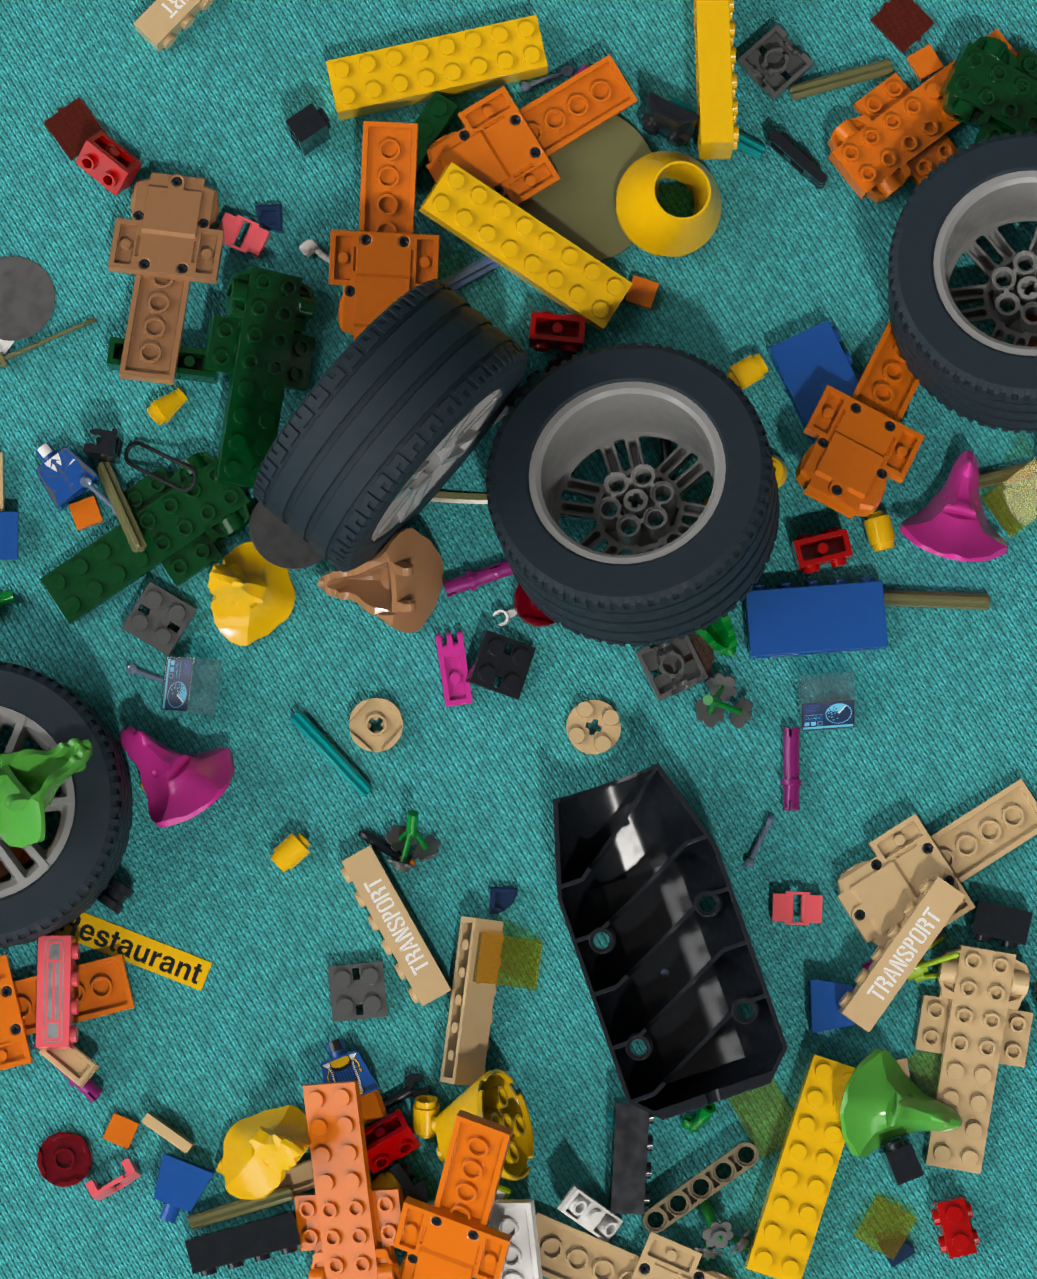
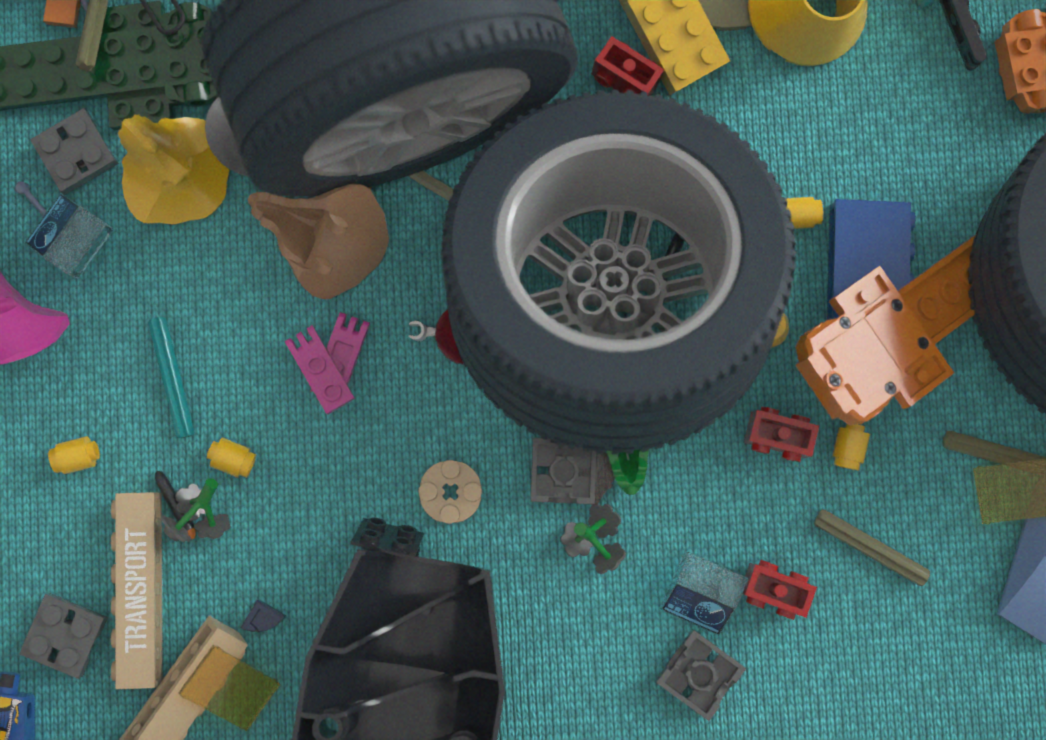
camera: 25 degrees right, 0 degrees up
(376, 740) = (215, 364): tan plate -> none
(412, 790) = (231, 457): none -> yellow brick
(446, 687) = (320, 371): none -> dark pink hinge
(476, 578) = (409, 277): magenta pin -> none
(494, 663) = (384, 372): black brick -> none
(574, 783) = (388, 538): none -> black hinge
(642, 292) = (734, 79): orange tile -> none
(749, 861) = (536, 716): sand blue hinge -> none
(791, 769) = (629, 645): magenta pin -> none
(816, 618) = (738, 501): blue brick -> none
(863, 763) = (707, 679): none -> dark grey brick
(889, 668) = (788, 593): none -> red brick
(955, 519) = (936, 473): dark pink animal -> none

